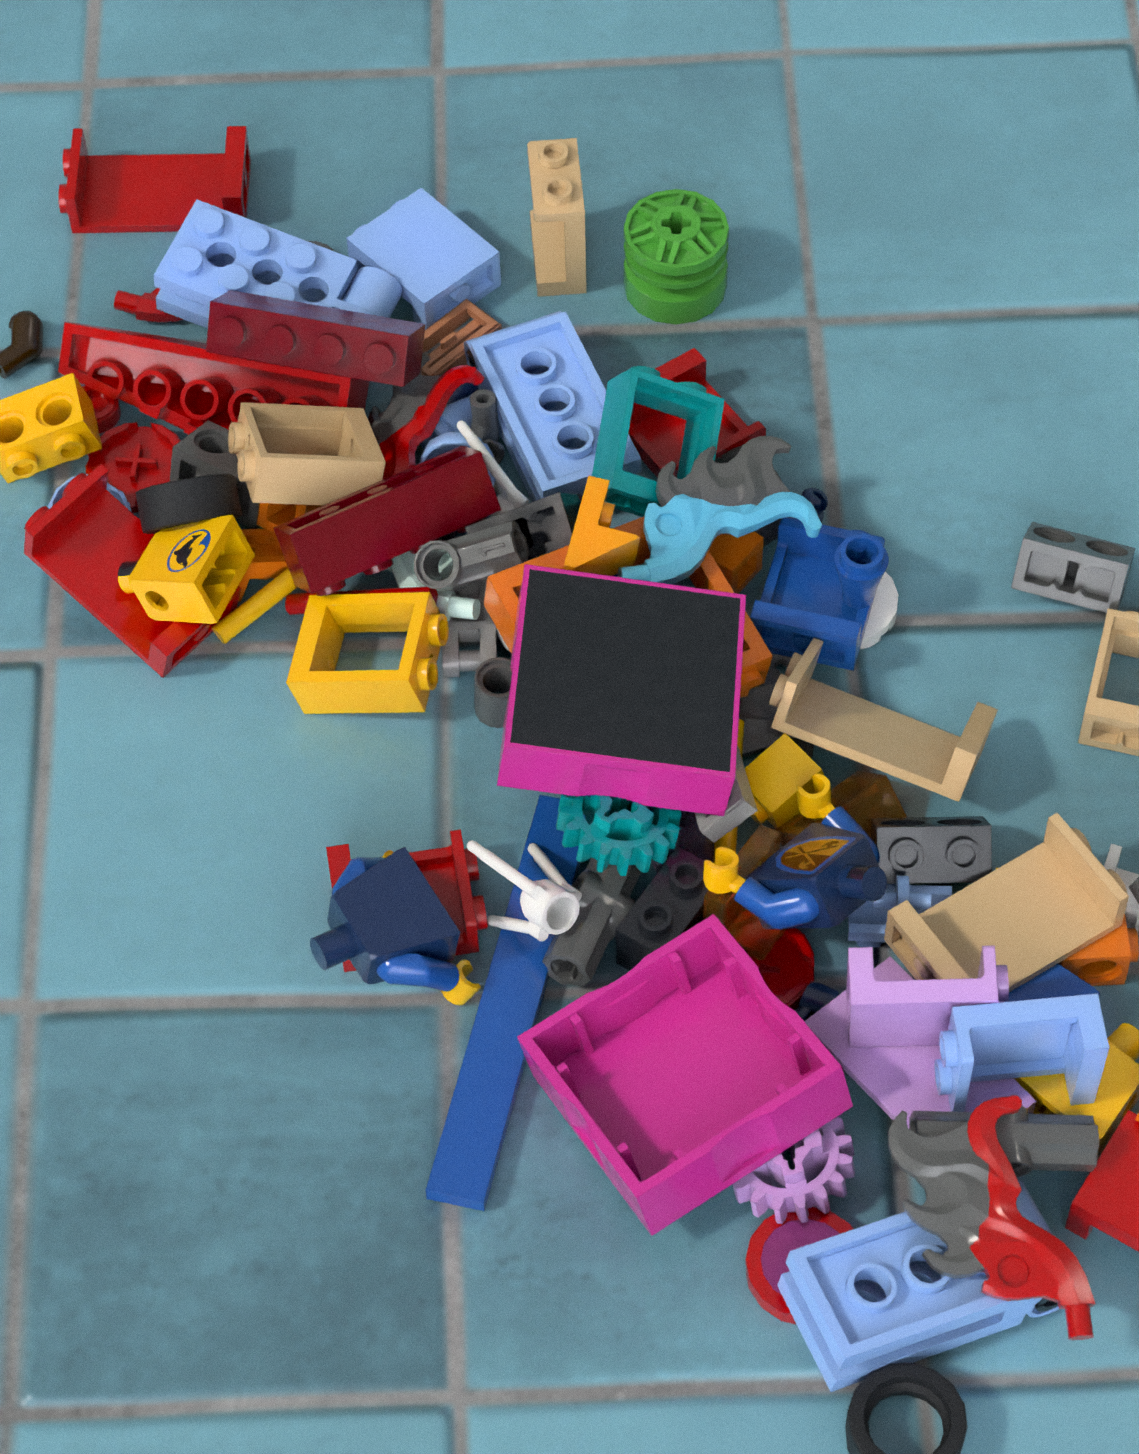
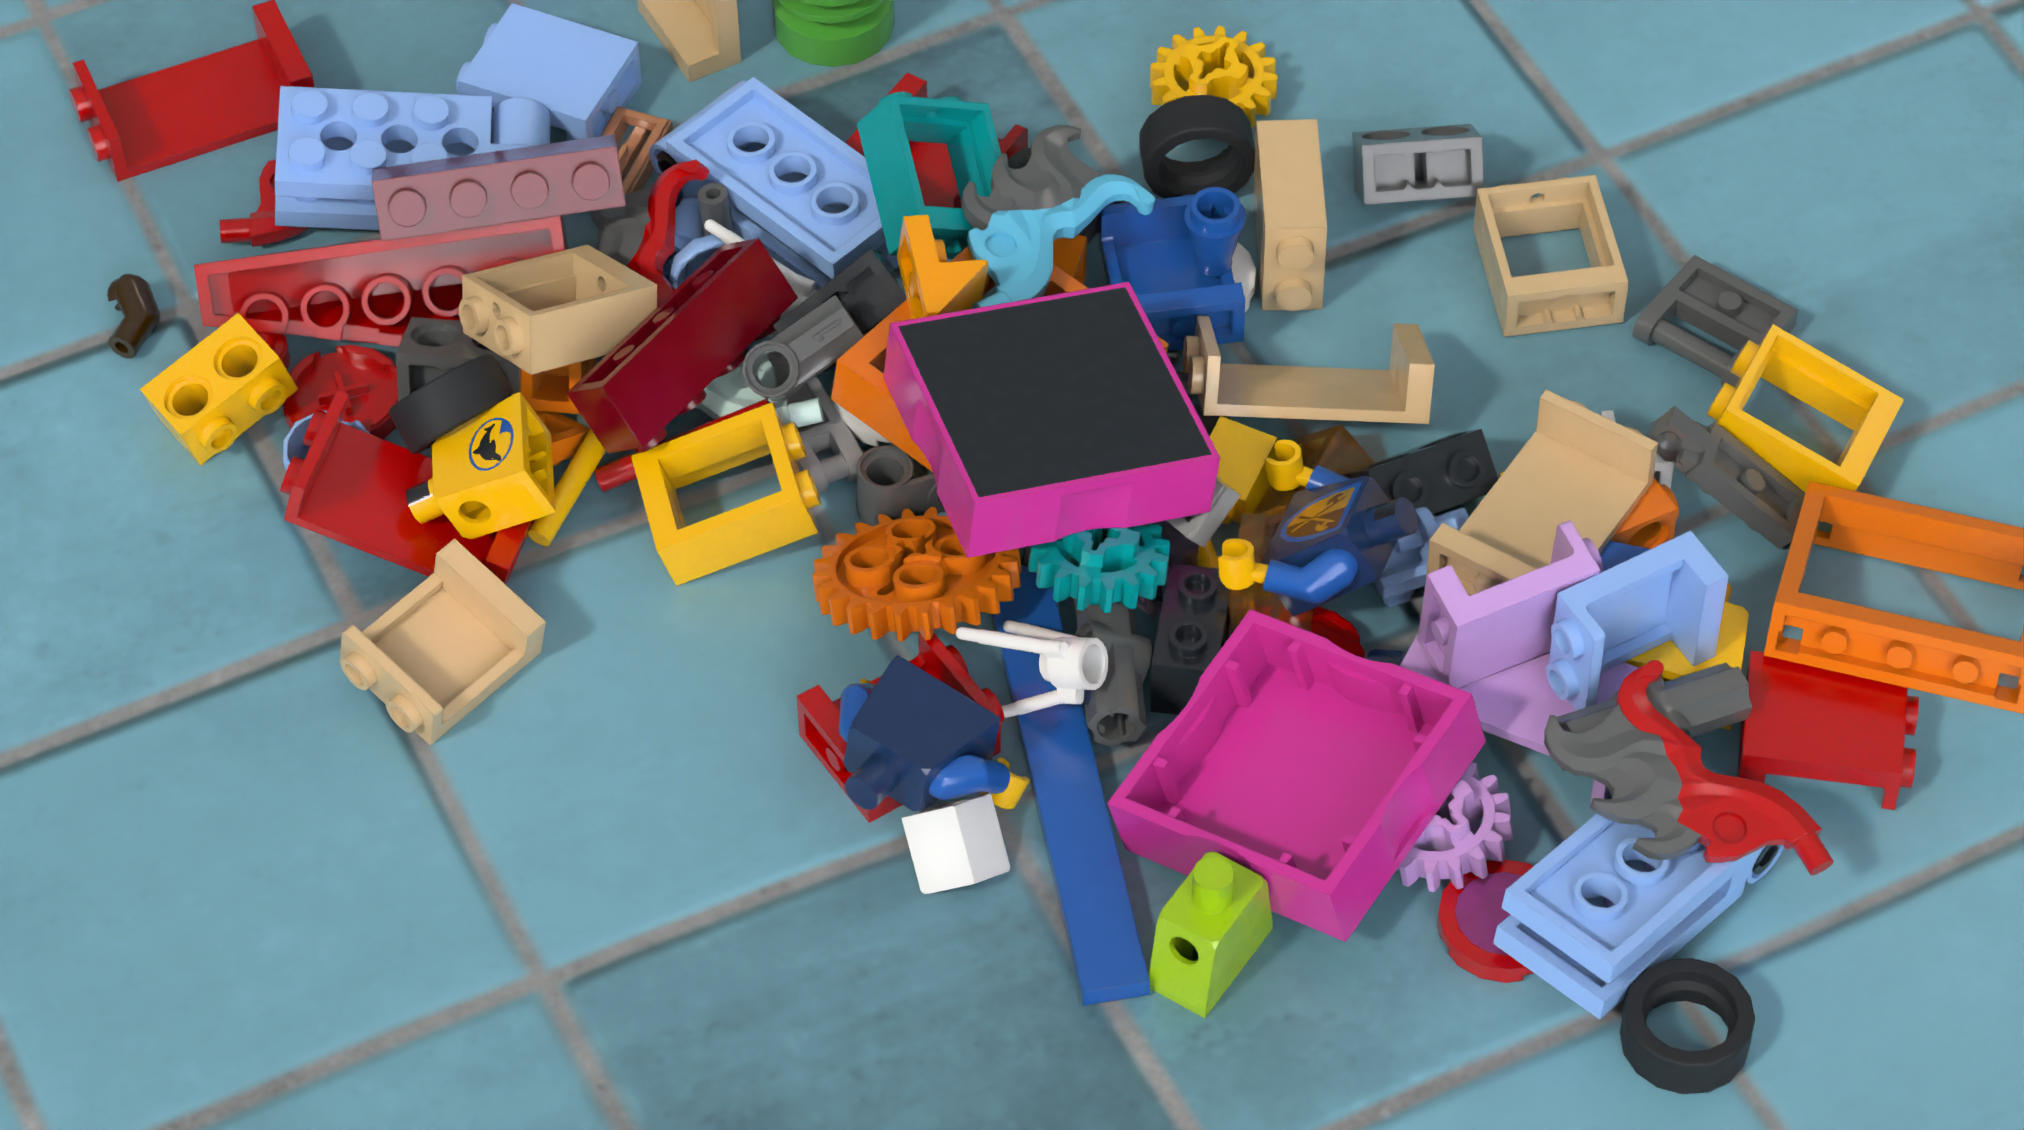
camera: 25 degrees left, 5 degrees down
(90, 701) = (443, 645): none -> tan panel
(393, 1021) = (956, 844): none -> white panel
(453, 782) = (910, 578): none -> orange gear
(551, 1177) = (1221, 914): none -> lime torso
(899, 470) = (1190, 120): none -> black tyre
(938, 576) = (1289, 215): none -> tan brick
(945, 437) = (1216, 68): none -> yellow gear

